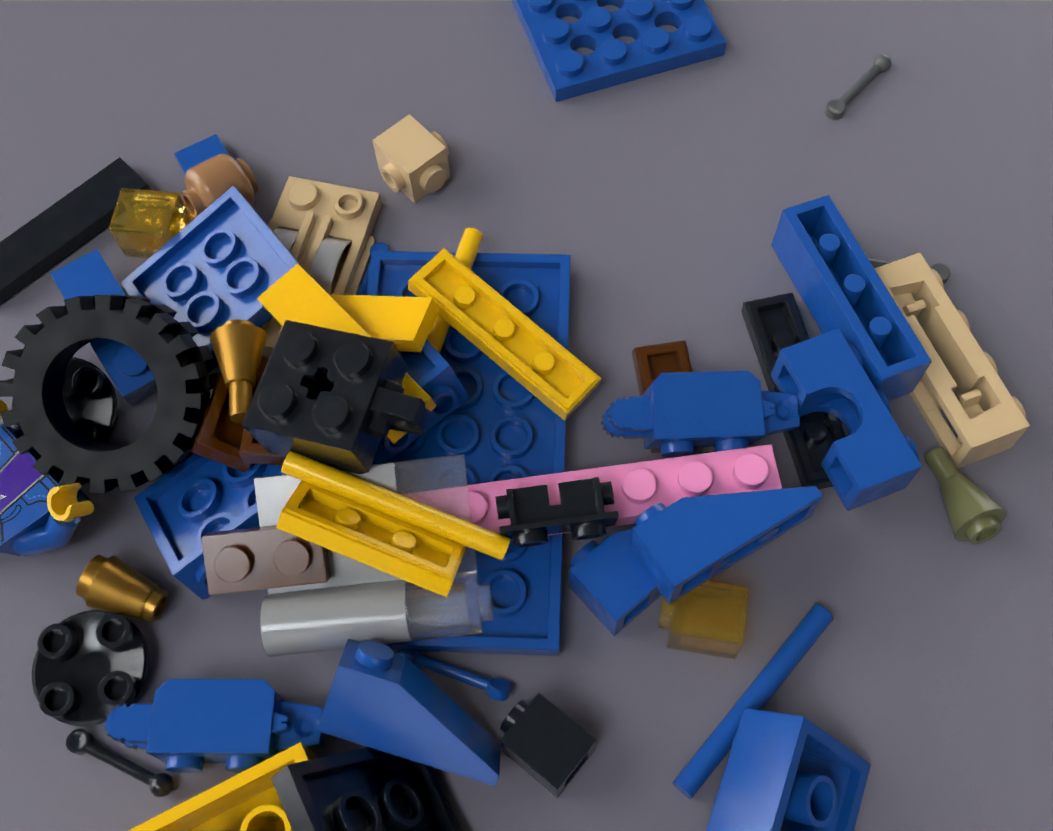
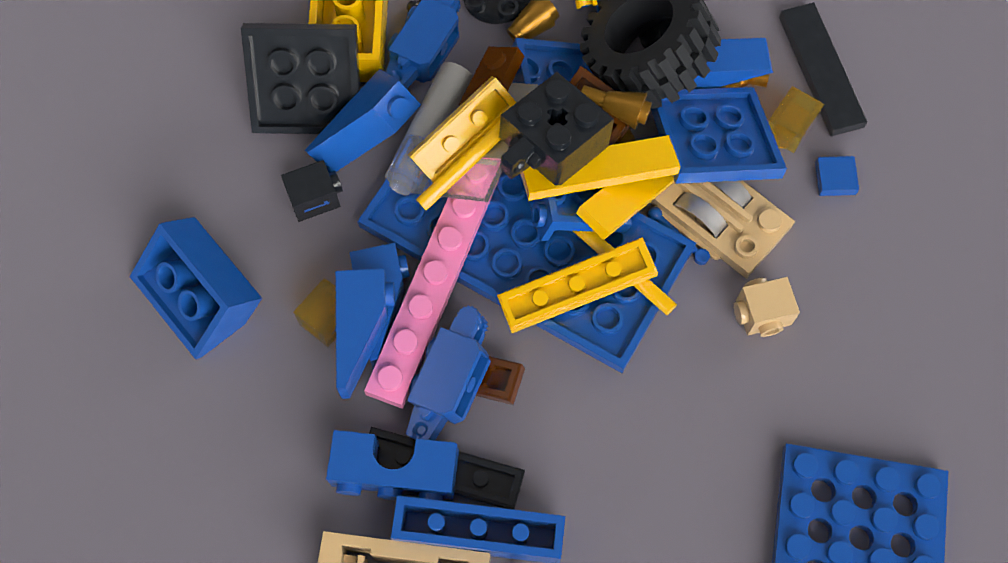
camera: 115 degrees right, 5 degrees up
(213, 178) = (805, 170): medium nougat head -> none
(496, 687) = (361, 186): blue hinge -> none
(579, 512) = (418, 258): black hinge -> none
(755, 697) = (270, 321): blue bar -> none
(969, 509) = (296, 517): olive cone -> none

